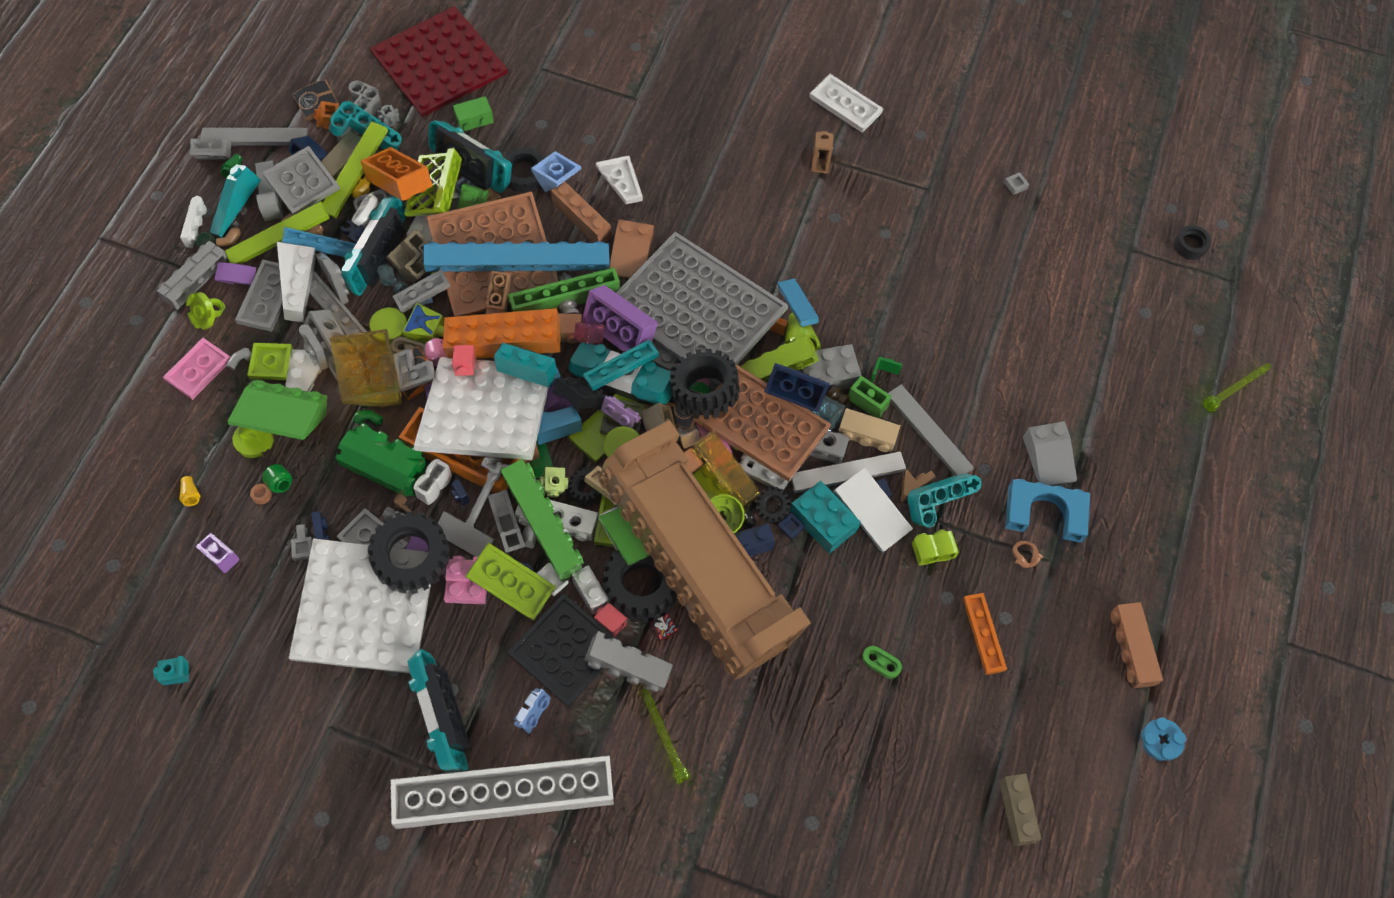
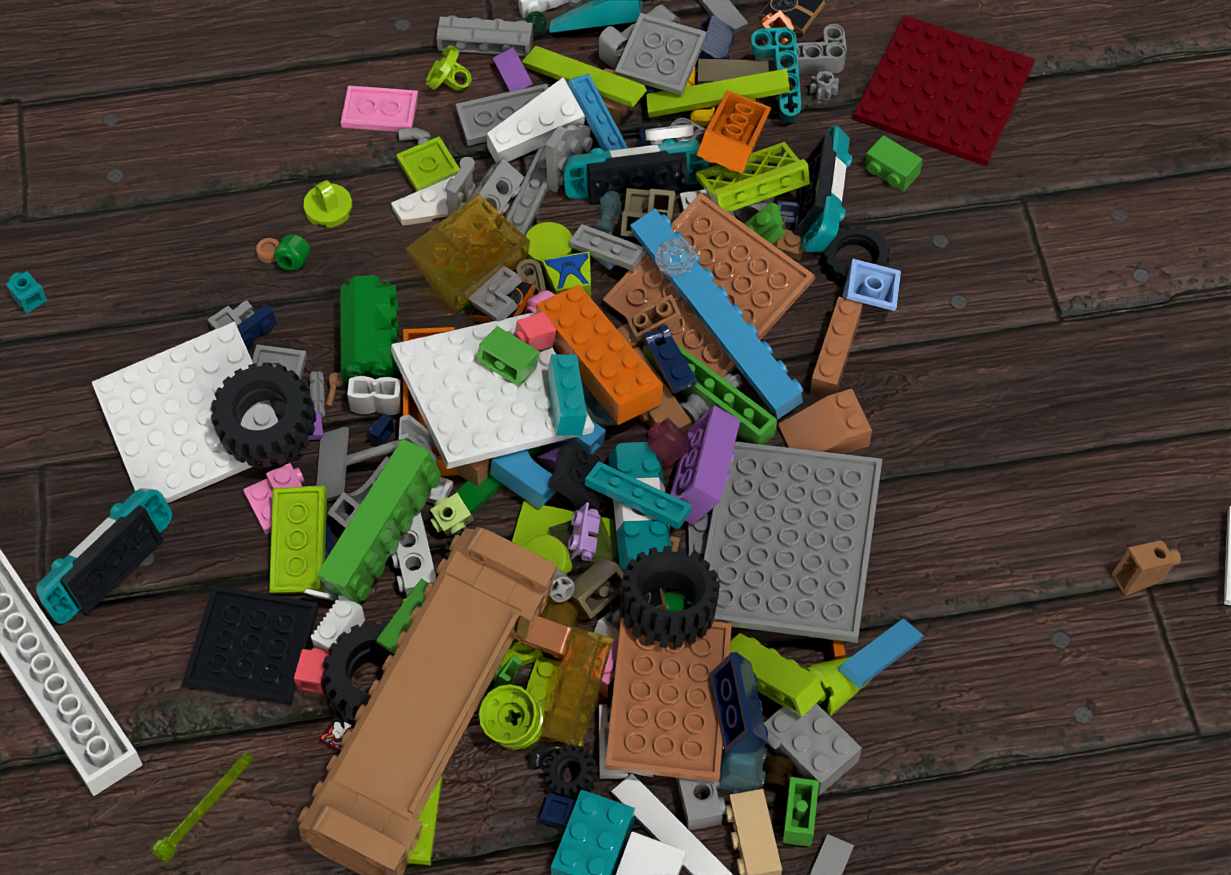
camera: 65 degrees right, 5 degrees down
(188, 492) = (229, 187): yellow cone -> none
(217, 552) = (178, 253): medium lavender slope -> none
(230, 239) = (555, 42): medium nougat arm -> none
(279, 410) = (366, 204): bright green slope -> none
(360, 416) = (418, 285): green arm -> none
(473, 382) = (508, 356): none -> bright green brick
(474, 246) = (675, 247): none -> clear gear
(533, 298) = (669, 359): none -> dark blue plate
(537, 703) = (153, 651): medium blue hinge -> none
(622, 178) = (925, 364): white wing -> none
(627, 663) = (263, 712): light grey wedge -> none
(756, 539) = (506, 774): dark blue brick -> none
(887, 365) = (861, 800): green bracket -> none

